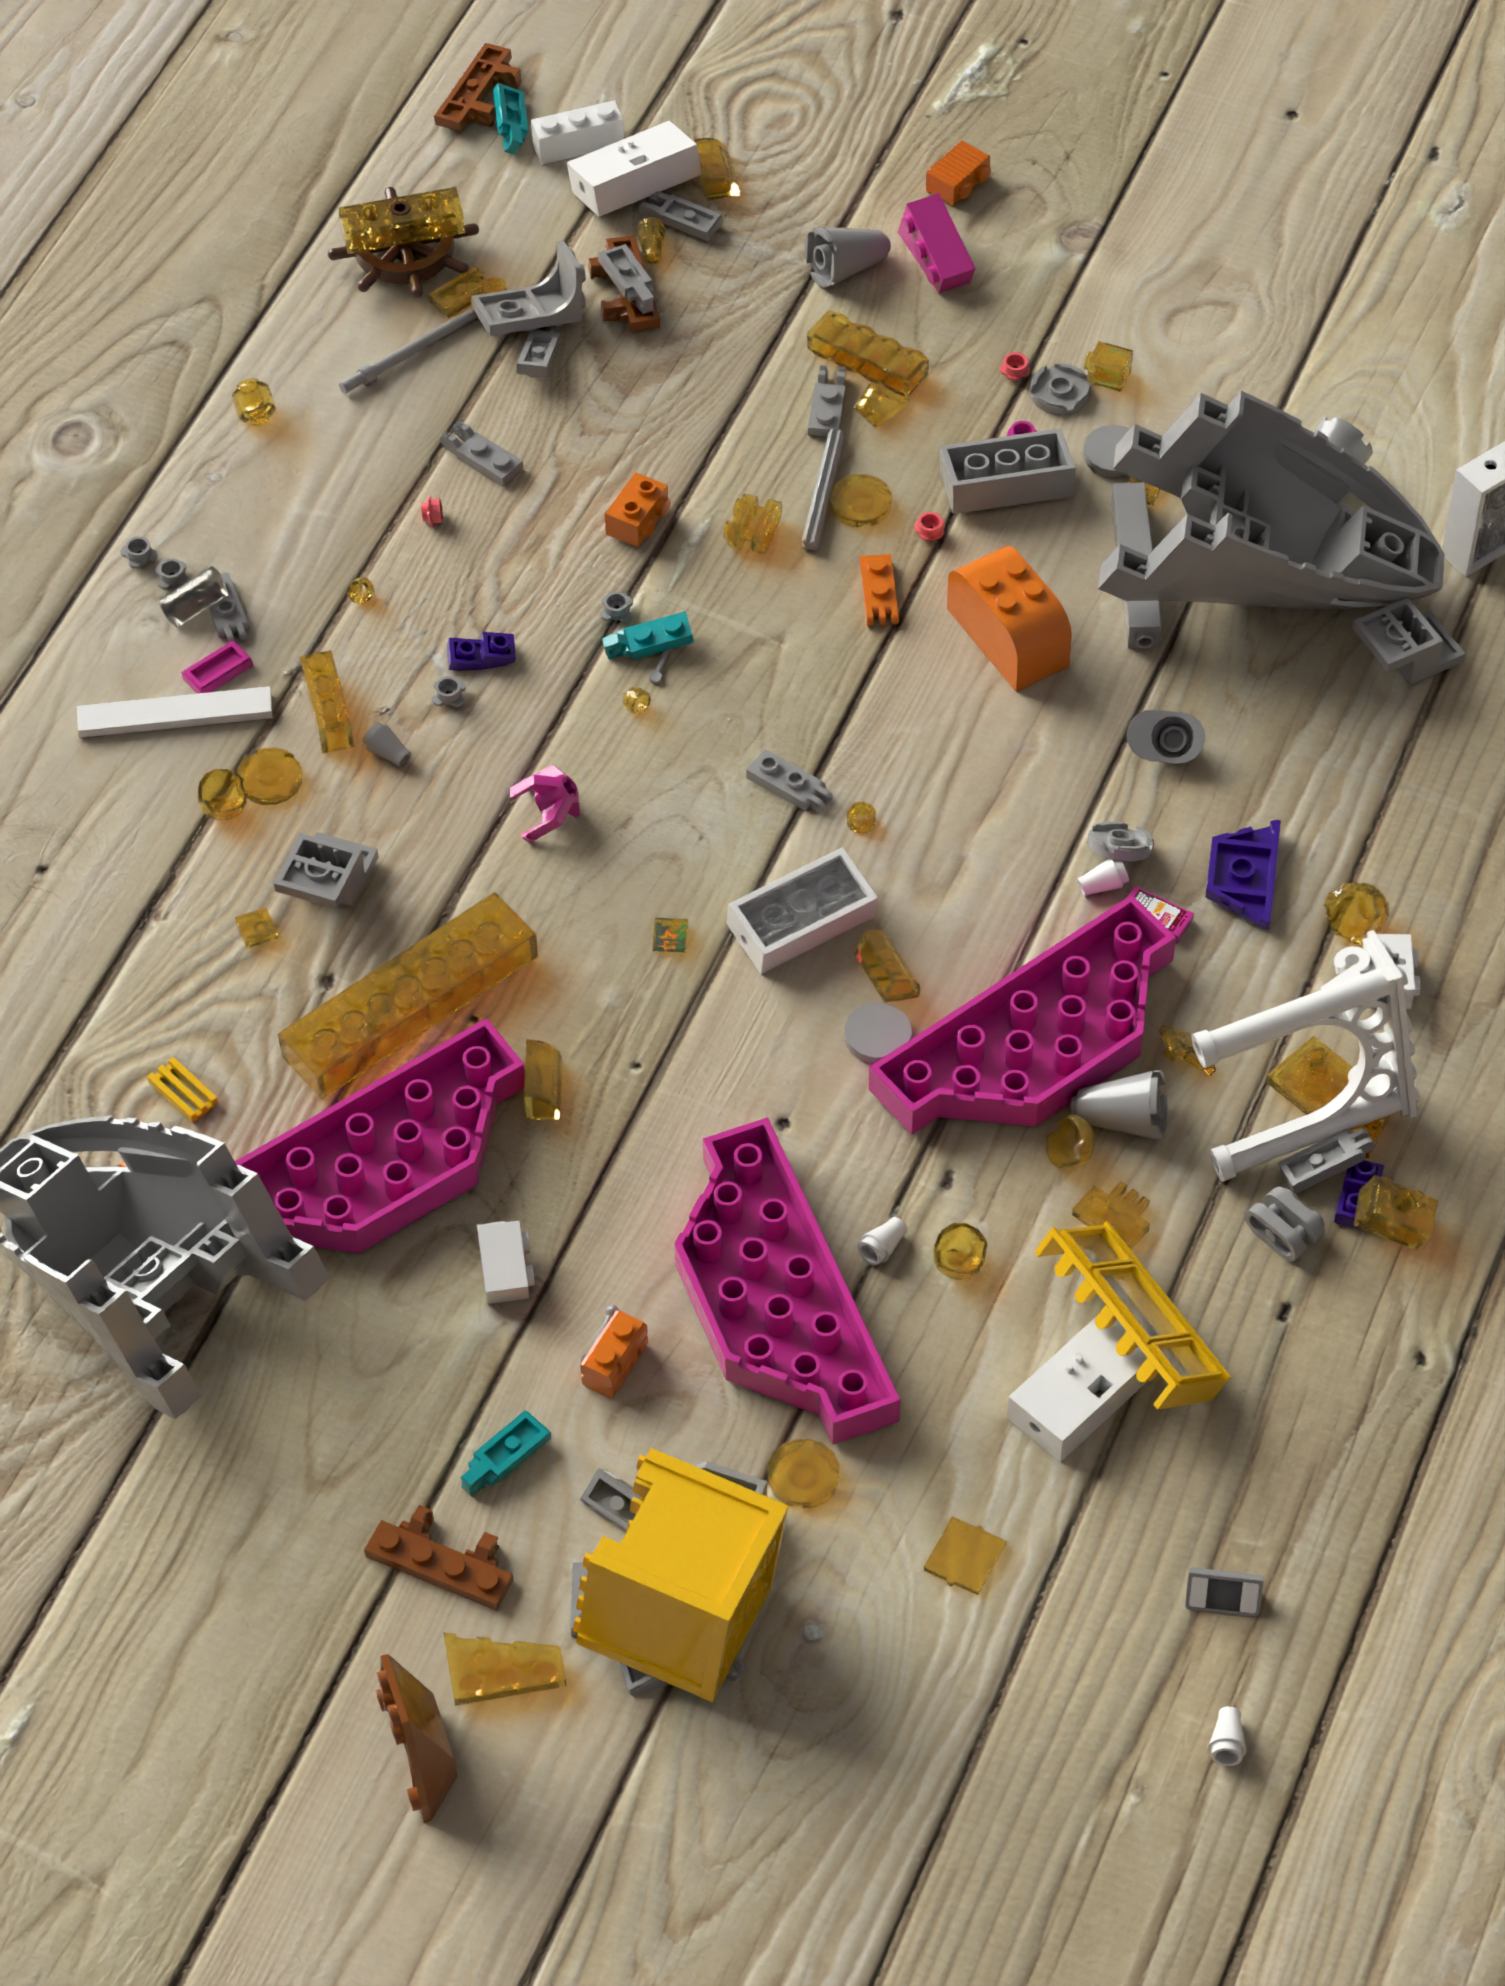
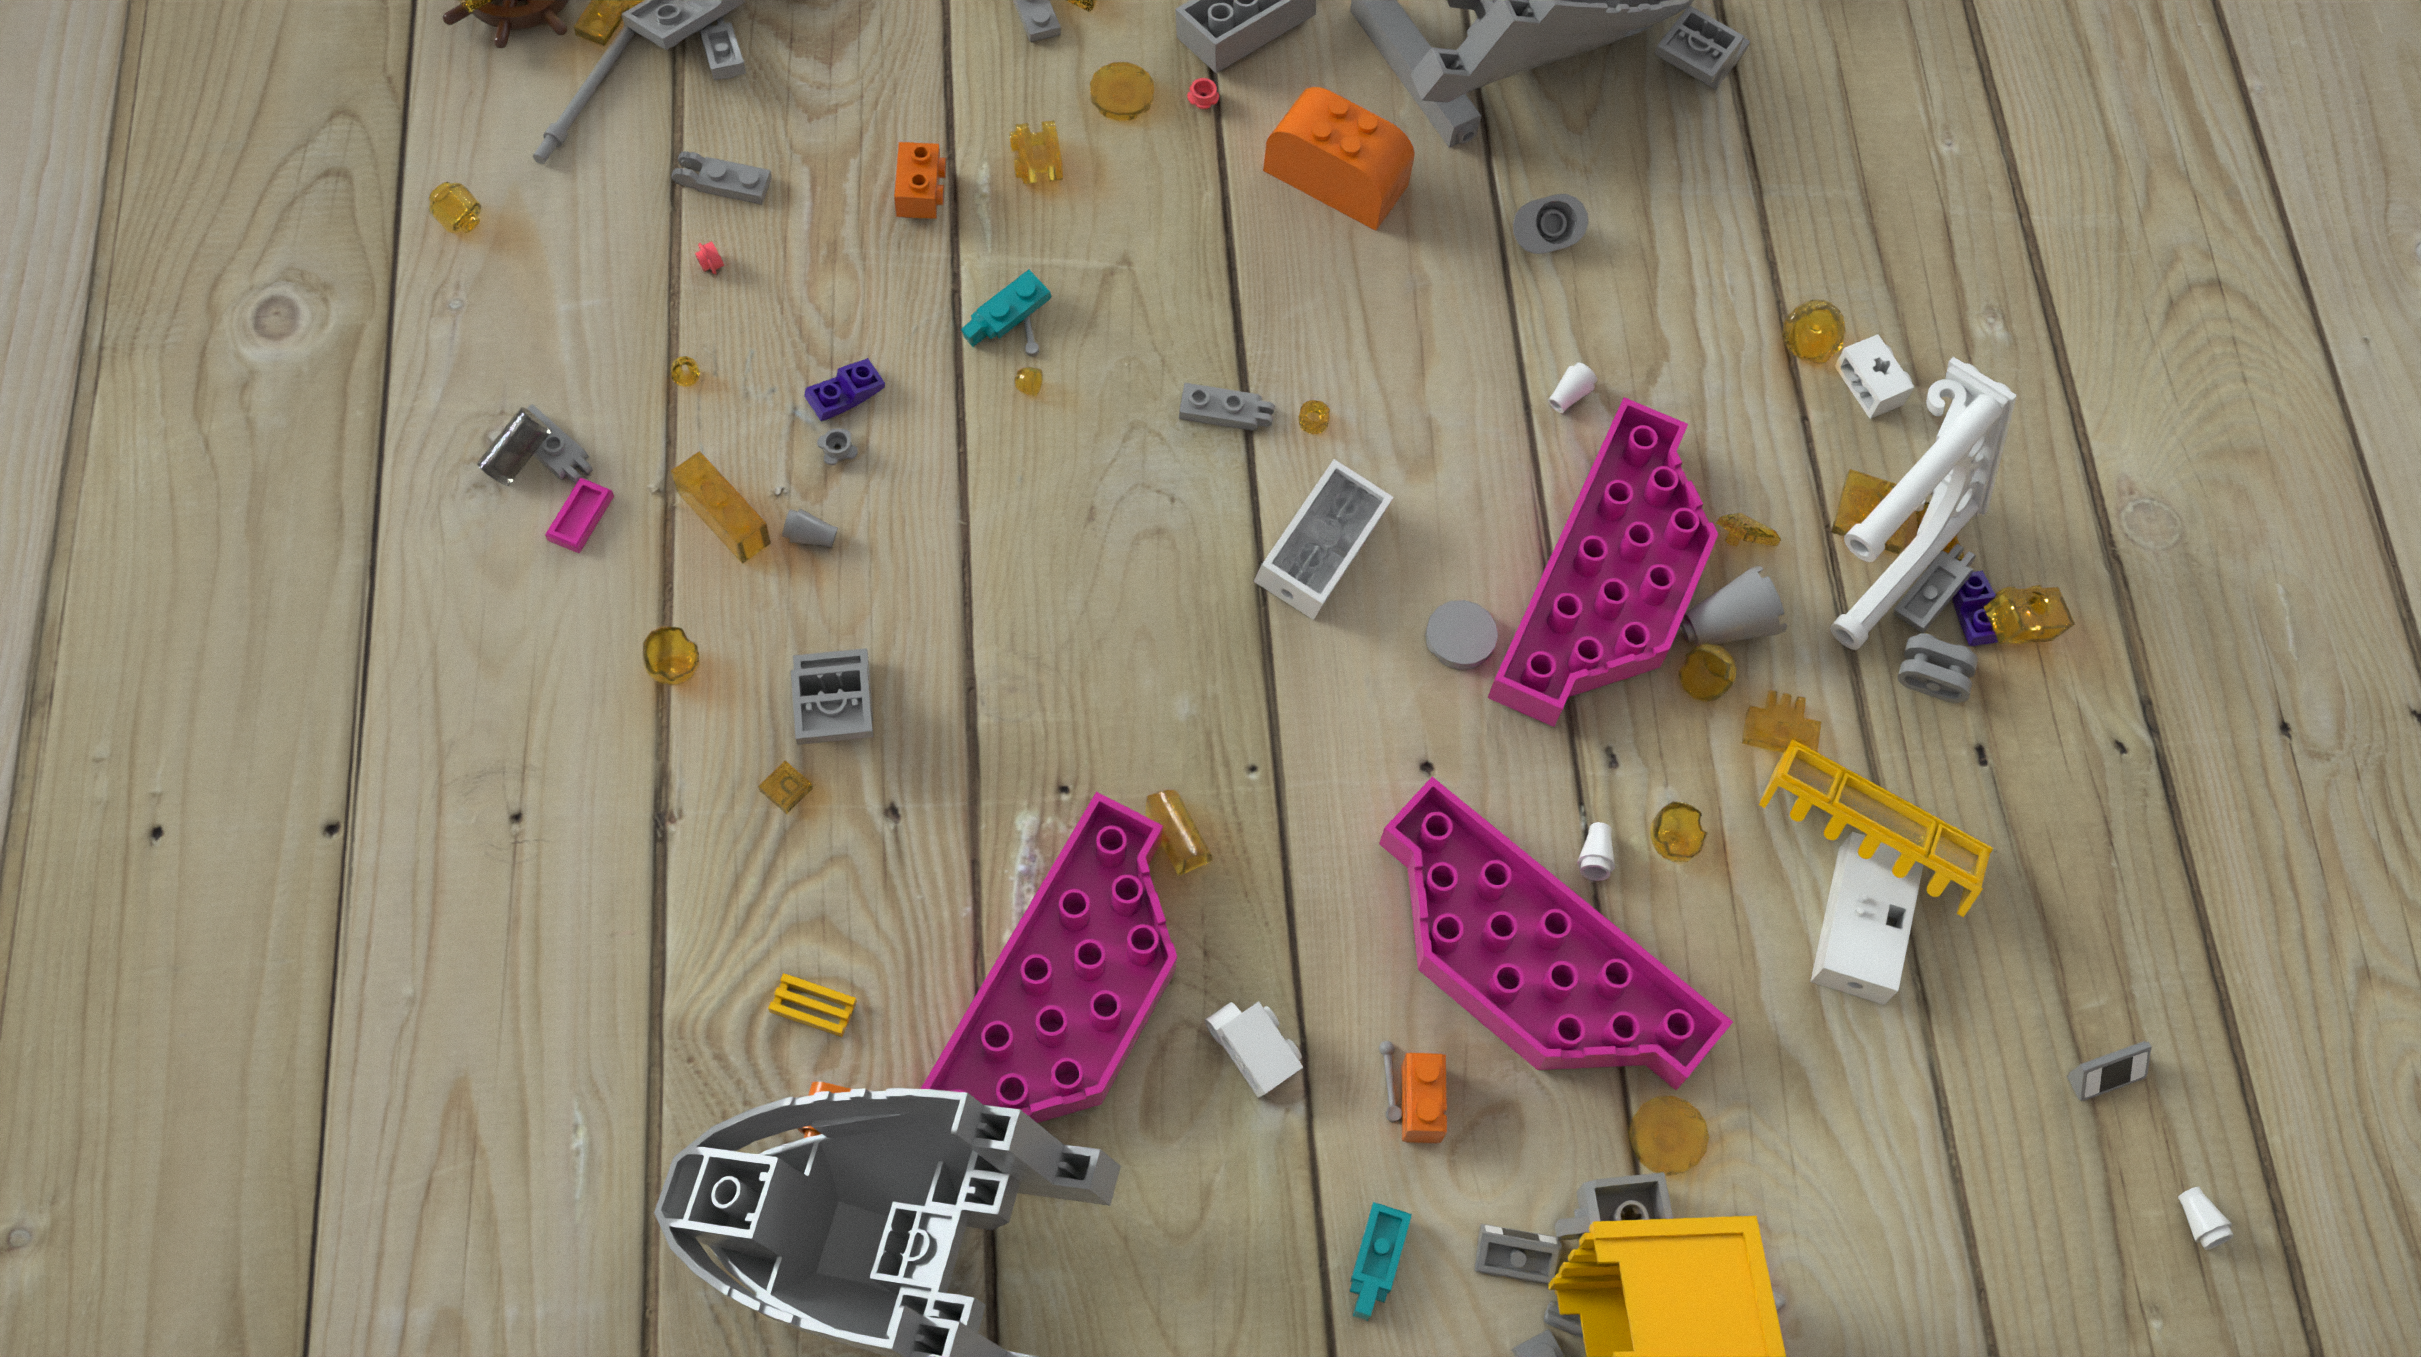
camera: 35 degrees left, 10 degrees up
(138, 552) = (420, 410): light grey plate -> none
(171, 574) = (471, 421): light grey plate -> none
(174, 712) = (560, 582): white tile -> none
(270, 776) = (704, 610): clear yellow tile -> none
(408, 995) = (989, 798): clear yellow brick -> none
(555, 797) = (1016, 517): dark pink piece -> none
(616, 607) = (952, 282): light grey plate -> none
(670, 935) = (1205, 616): clear yellow tile -> none
(822, 490) = (1080, 93): light grey axle -> none
(878, 588) = (1192, 175): orange hinge -> none
(886, 967) = (1434, 564): clear yellow brick -> none
(965, 1555) = (1861, 1147): clear yellow piece -> none
(1120, 843) = (1568, 346): light grey tile -> none
(1170, 915) = (1653, 398): tile -> none
(1244, 872) = (1691, 331): dark purple wing -> none

